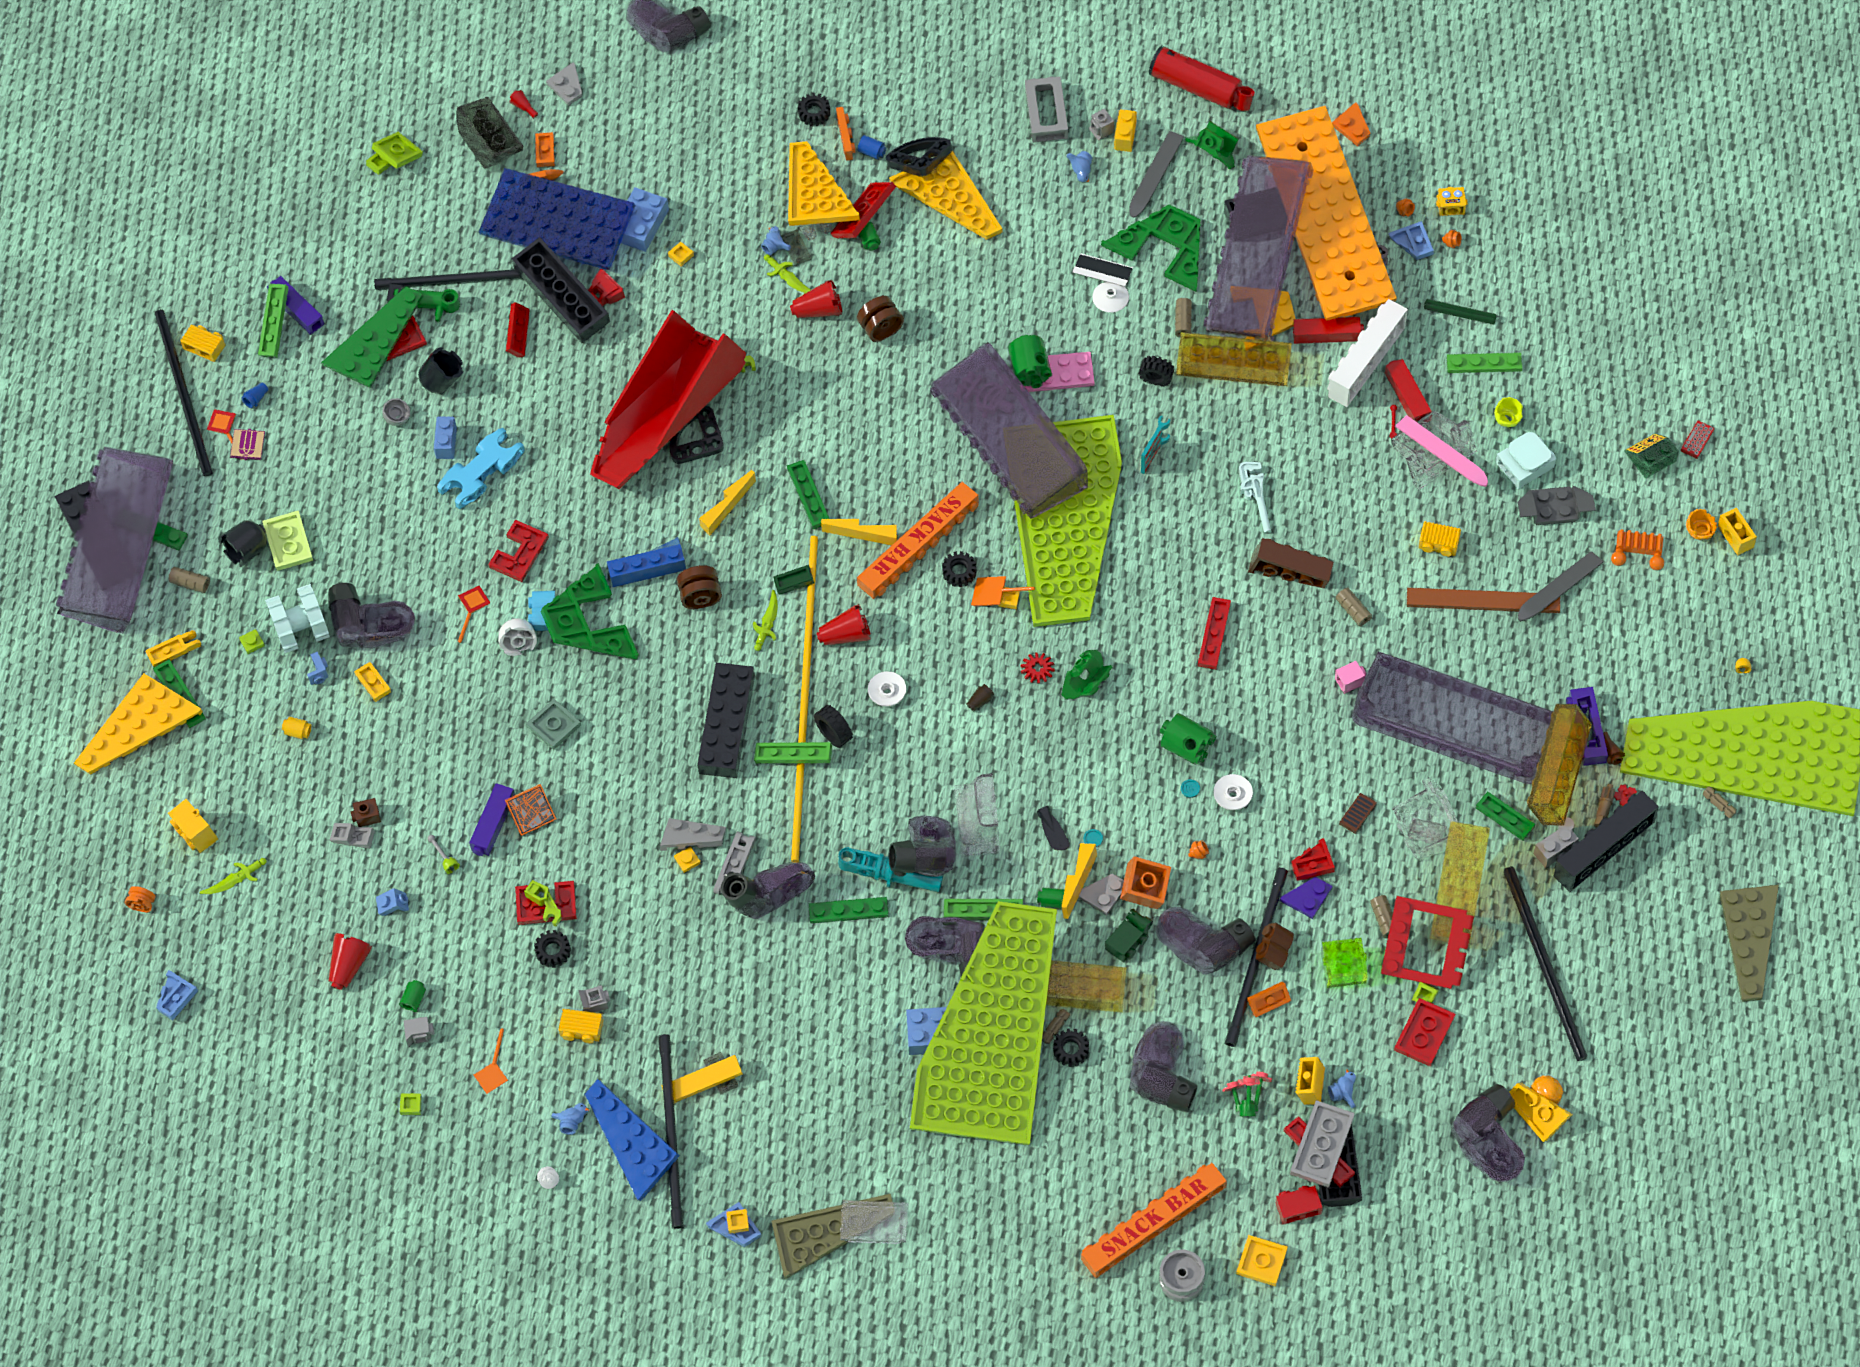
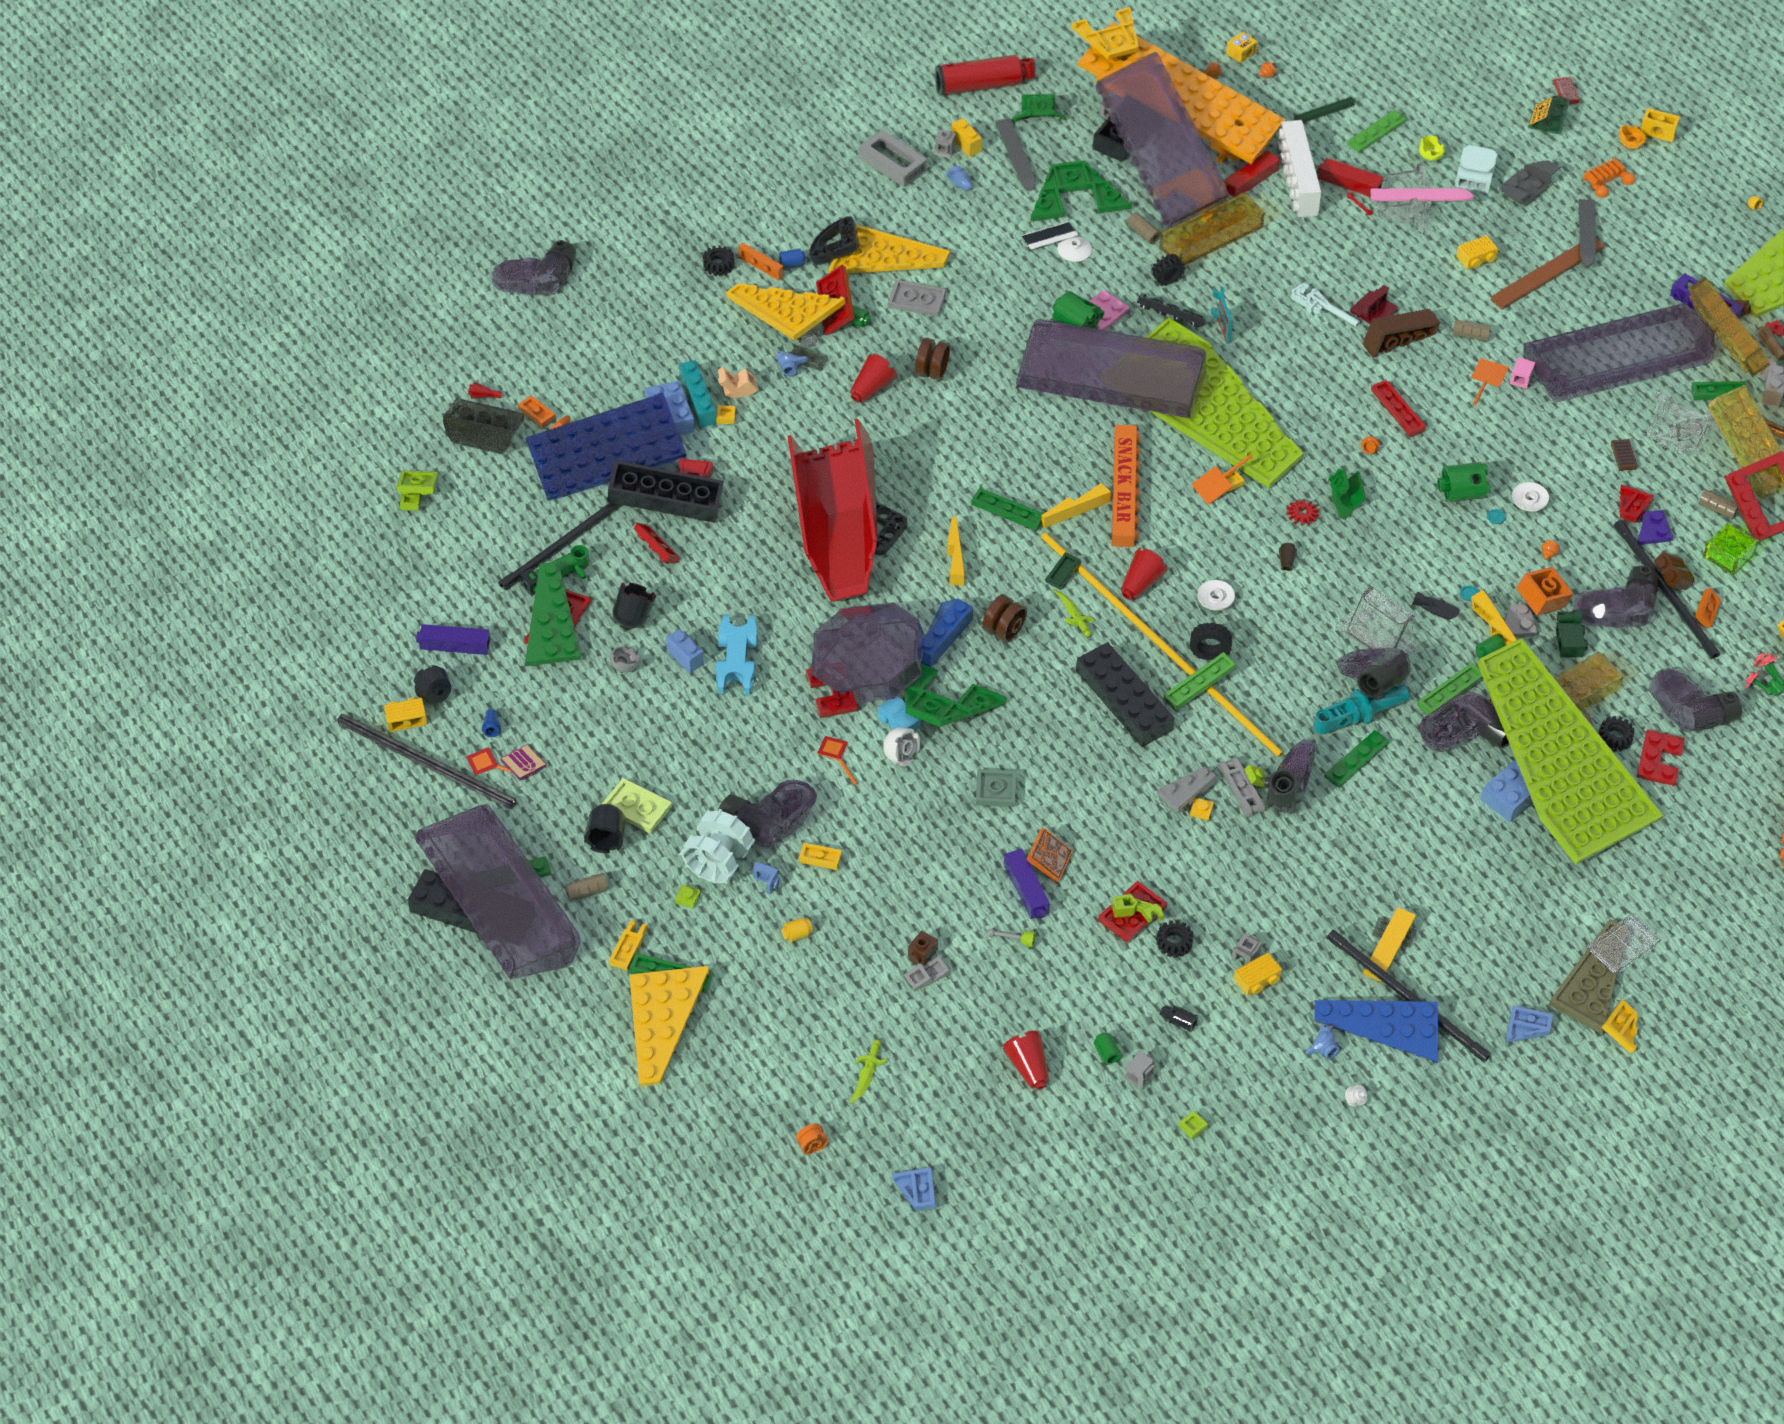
camera: 45 degrees left, 10 degrees down
(192, 826) = (798, 1053): yellow brick -> none
(239, 332) = (432, 684): none -> black cone
(273, 320) = (451, 658): bright green plate -> none
(392, 901) = (1013, 996): medium blue bracket -> none
(490, 1013) = (1179, 1017): none -> black hinge
(491, 1075) = (1226, 1061): orange piece -> none
(565, 540) = (869, 651): none -> clear purple windscreen
(566, 84) = (502, 359): light grey wing -> none
(675, 219) = (697, 393): none -> teal brick
(714, 234) = (737, 385): none -> light nougat brick
(737, 1221) = (1531, 1016): yellow plate -> none
(752, 864) = (1255, 775): none -> lime plate
(784, 274) = (823, 380): lime piece -> none
(804, 1285) = (1622, 1025): none -> yellow wing
(936, 253) = (917, 298): none -> light grey tile
(954, 560) = (1171, 492): black tyre -> none
(1069, 1095) = (1652, 749): none -> red plate
(1117, 402) = (1155, 303): none -> black wing
(1155, 649) = (1370, 445): none -> orange plate
(1296, 527) = (1374, 305): none -> dark red bracket
(1304, 126) = (1111, 41): none -> yellow wing
(1328, 656) = (1488, 373): none -> orange piece
(1413, 240) = (1247, 85): medium blue wing -> none

